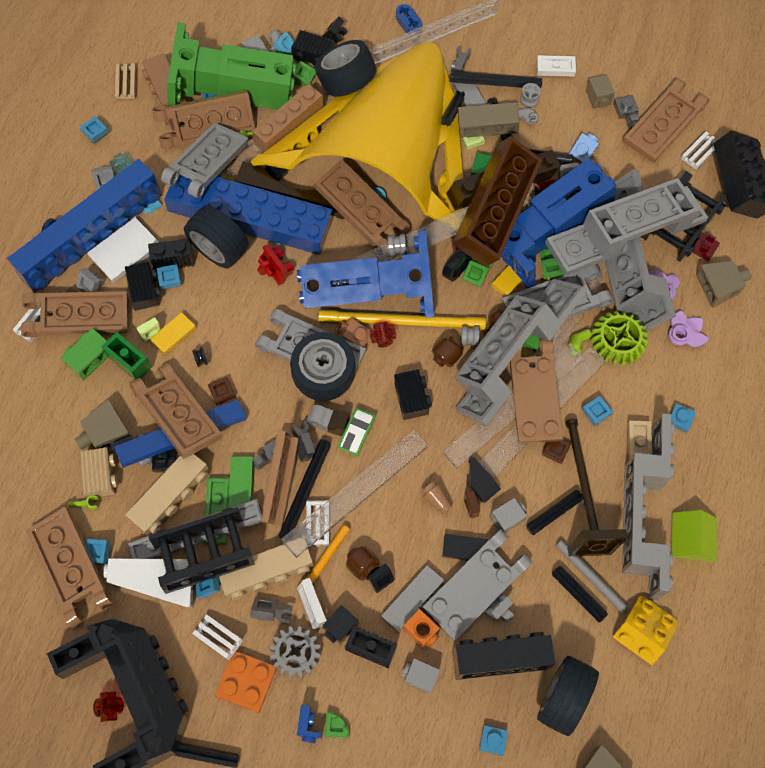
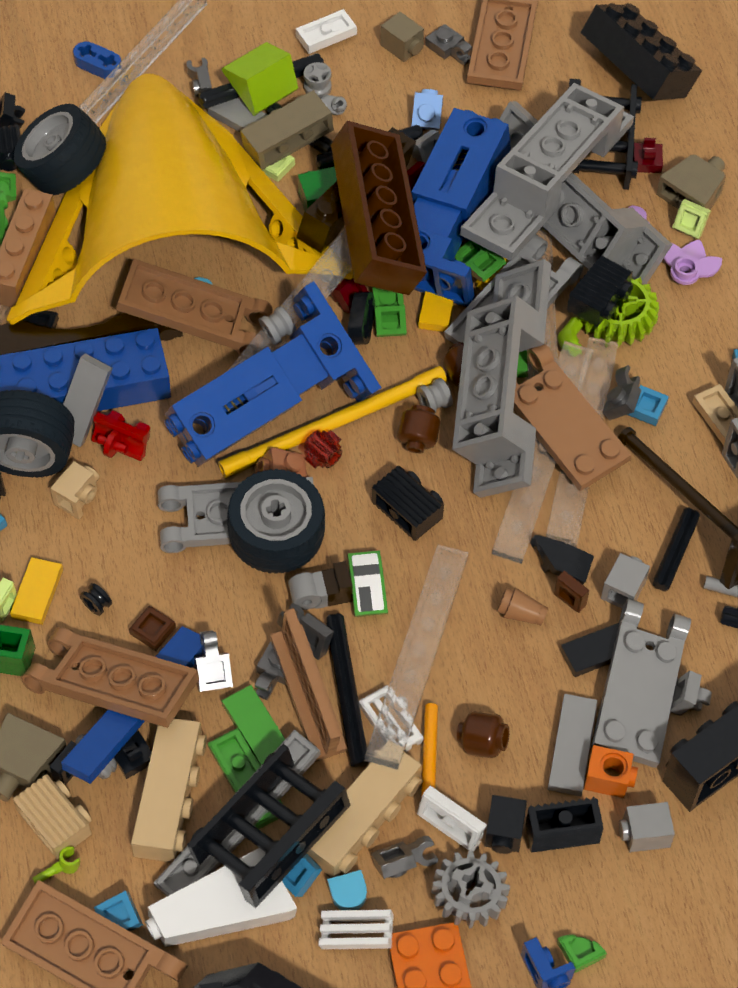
camera: 30 degrees left, 10 degrees down
(229, 611) = (348, 890): none -> medium azure tile
(230, 283) = (75, 489): none -> tan brick
(236, 435) = (213, 667): none -> plate
(262, 231) = (85, 394): none -> light grey tile
(381, 578) = (518, 739): black tile -> none
(452, 108) = (233, 136): black axle -> none
(494, 78) = (262, 77): none -> lime slope
(556, 450) = (630, 477): reddish brown tile -> none
(583, 398) = (623, 398): none -> flat silver plate
(610, 322) = (600, 291): none -> black brick
(705, 302) = (691, 218): none -> yellowish green tile
(709, 140) = (571, 36): white tile -> none

